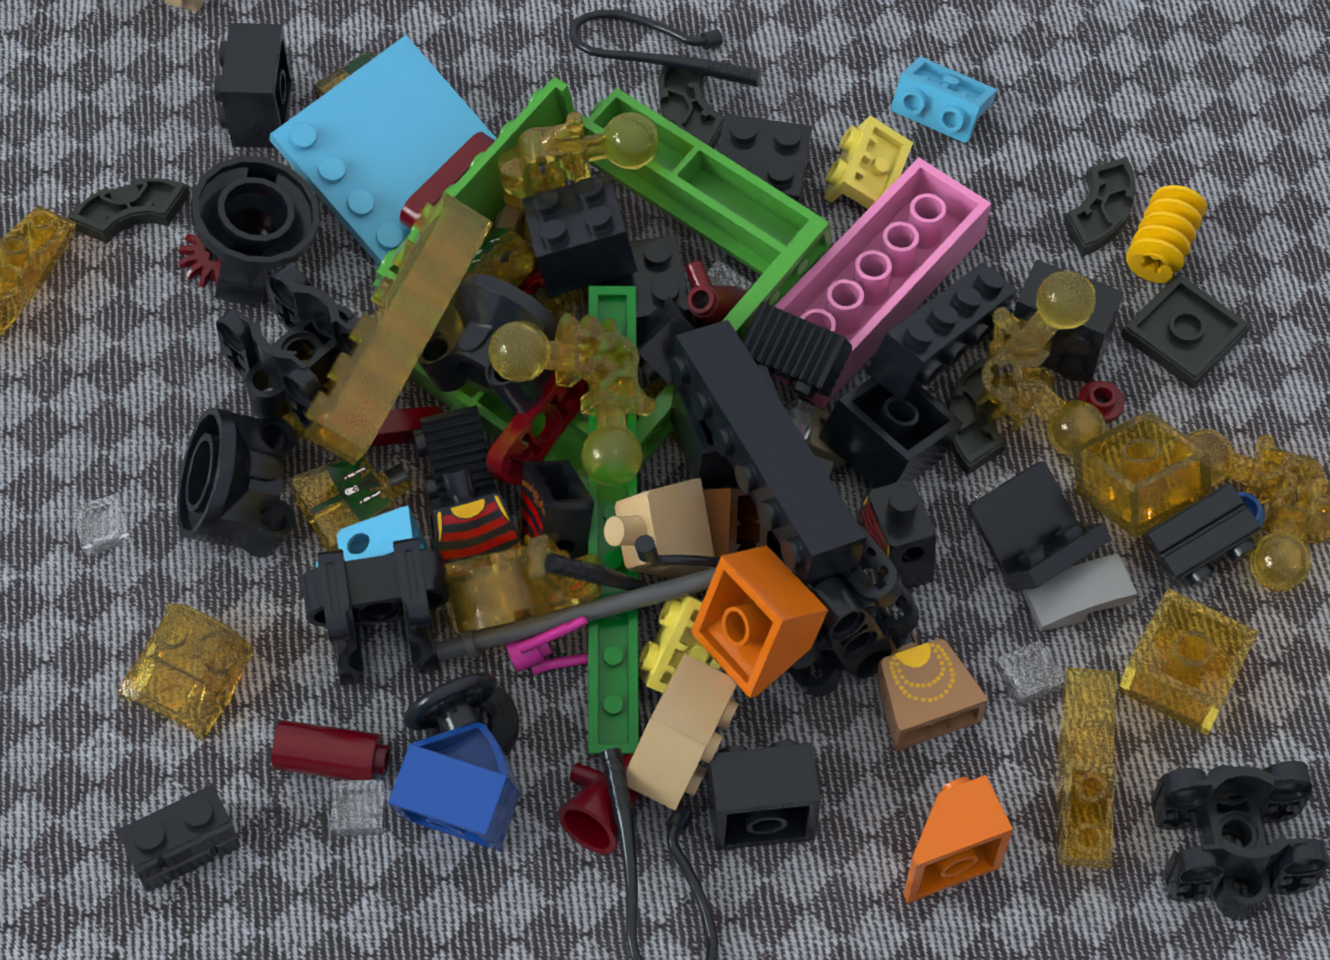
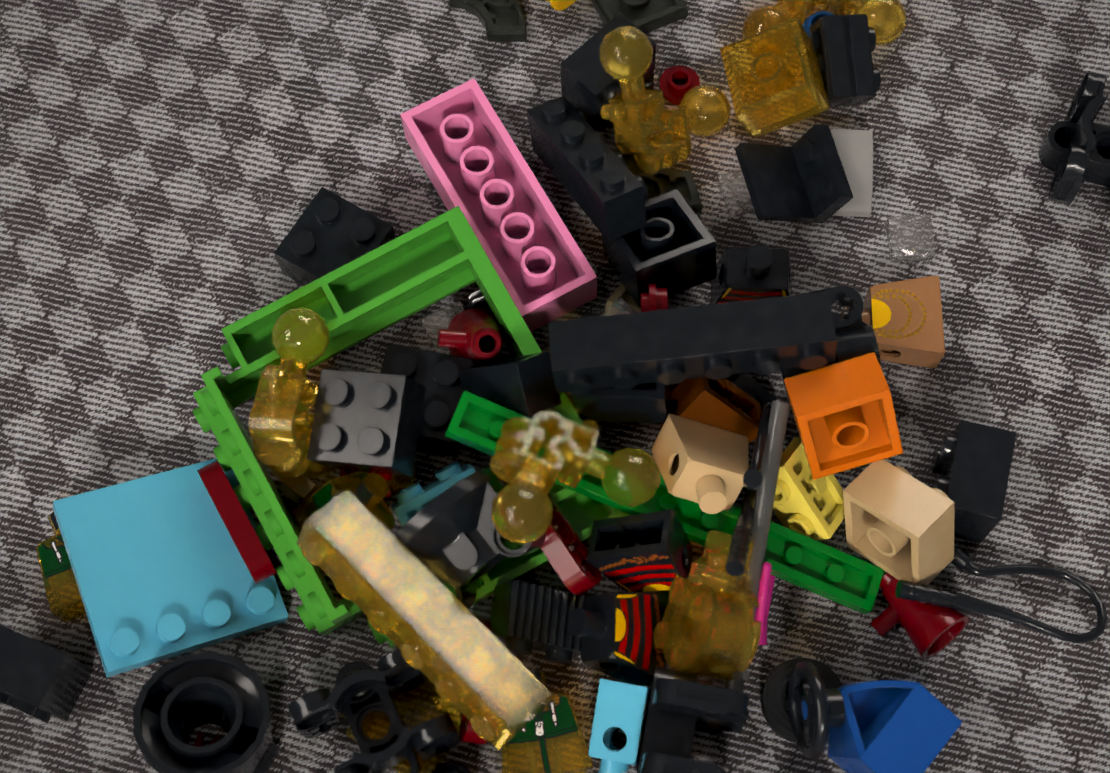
camera: 65 degrees left, 10 degrees up
(684, 105) = (229, 289): pearl dark grey tile -> none
(697, 65) = (163, 242): black piece -> none
(797, 350) = (571, 286): black brick -> none
(822, 437) = (654, 300): none -> dark red plate
(868, 164) = (368, 164): light yellow bracket -> none
(941, 98) = (325, 77): medium azure bracket -> none
(960, 840) = (1055, 350): orange slope -> none
(1086, 769) = (1018, 238): clear yellow slope -> none
(1187, 661) = (949, 119): clear yellow brick -> none

